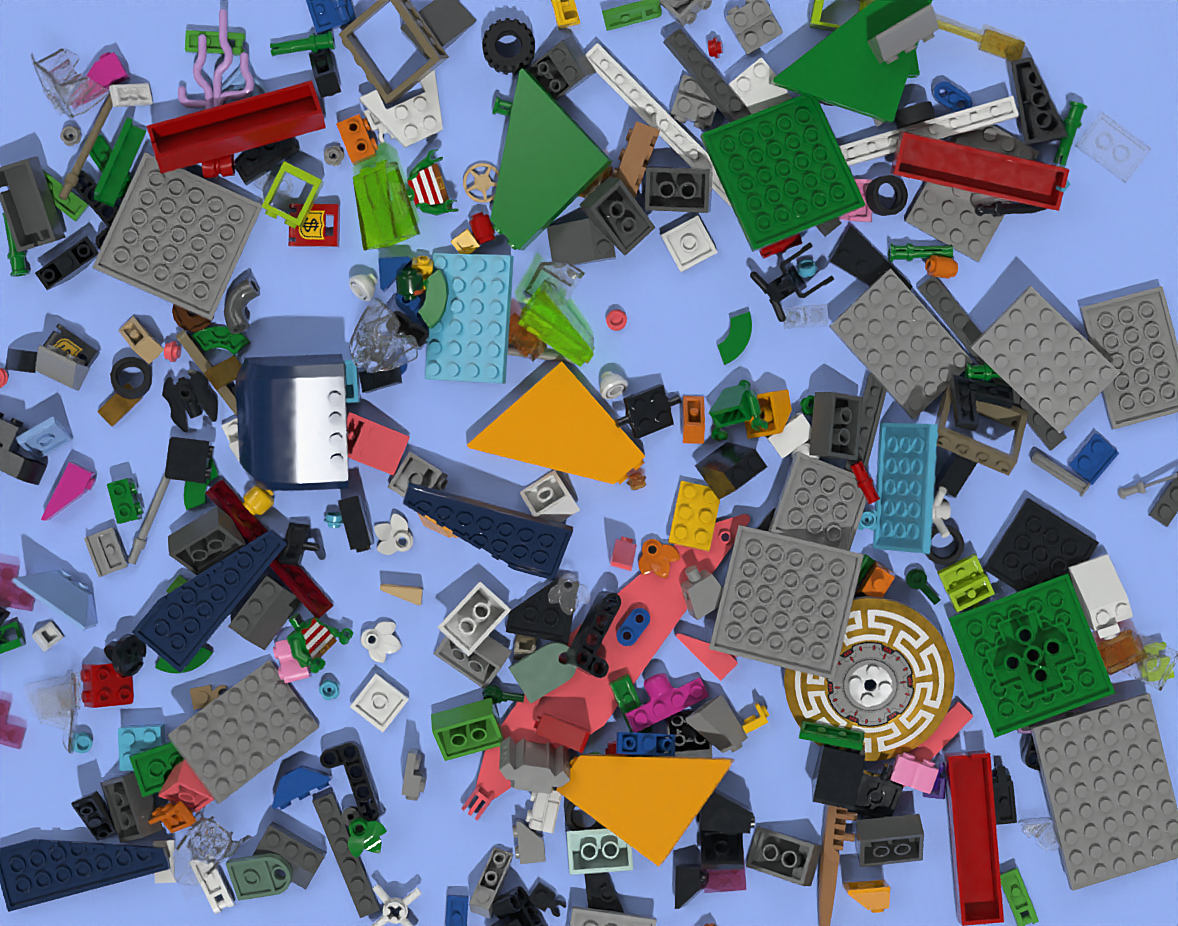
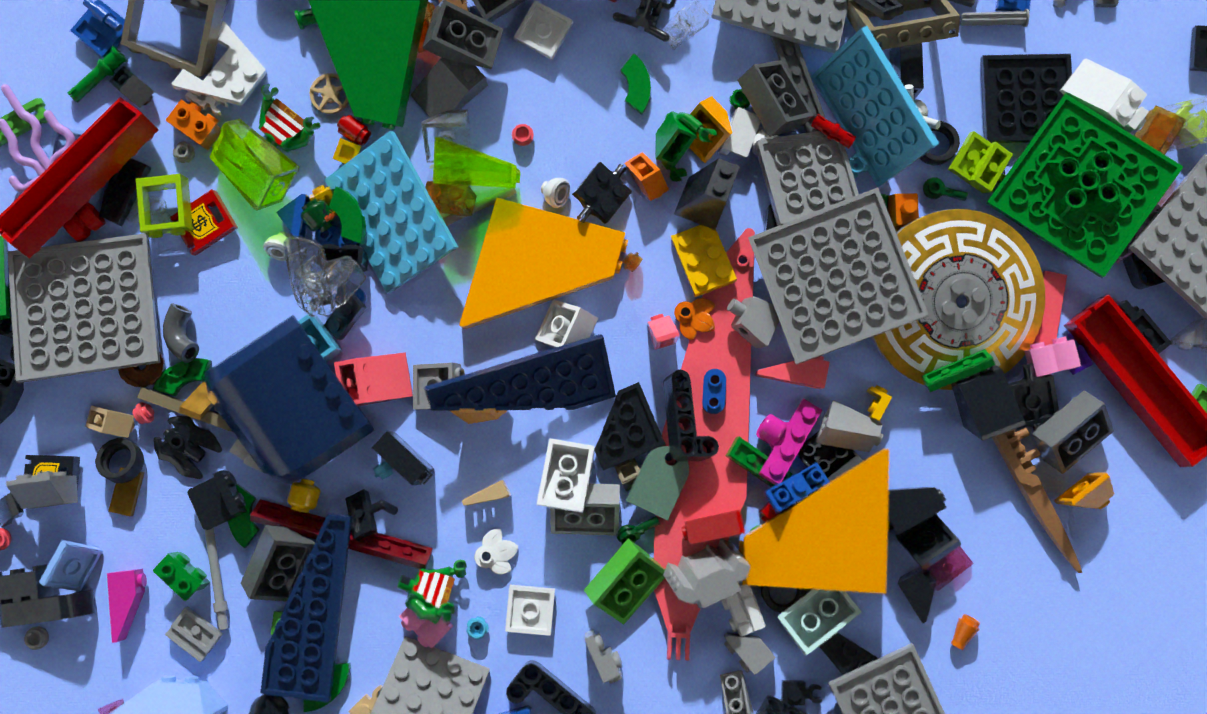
camera: 30 degrees left, 5 degrees down
(265, 612) = (373, 595): dark grey slope -> none
(390, 535) = (444, 452): white plate -> none
(569, 597) = (639, 401): clear plate -> none
(784, 856) = (987, 510): dark grey slope -> none

